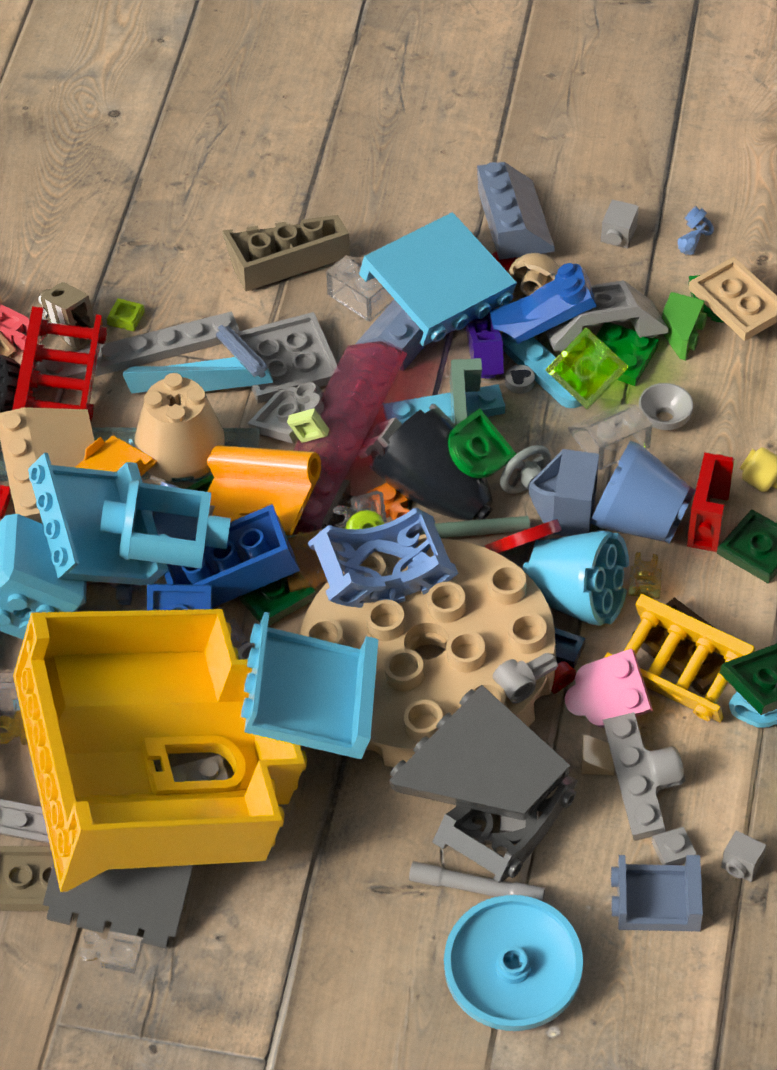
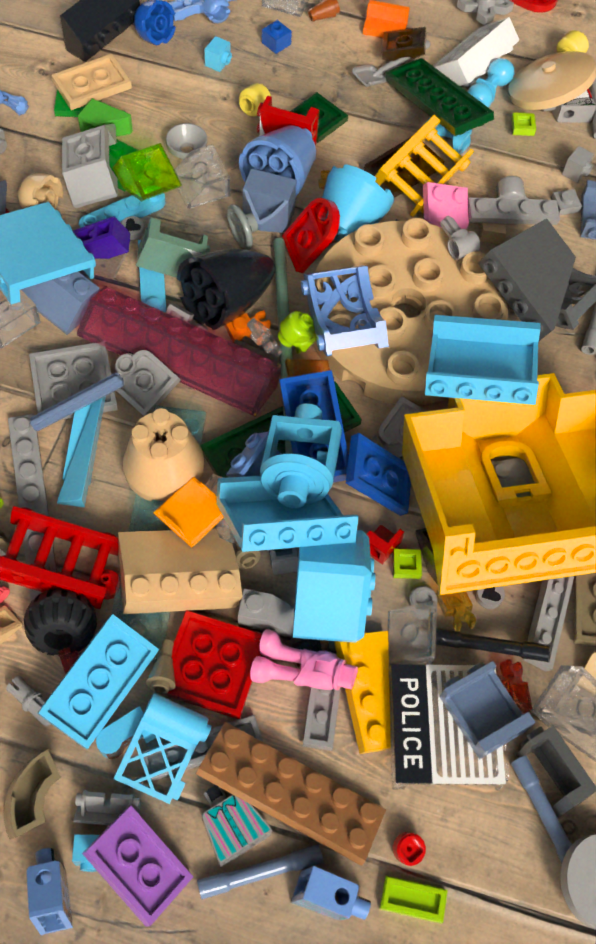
camera: 90 degrees left, 10 degrees up
(258, 477) = (235, 401): light orange door -> none
(308, 425) = (177, 358): yellowish green tile -> none
(479, 446) = (230, 238): green tile -> none
(547, 306) = (80, 183): blue slope -> none

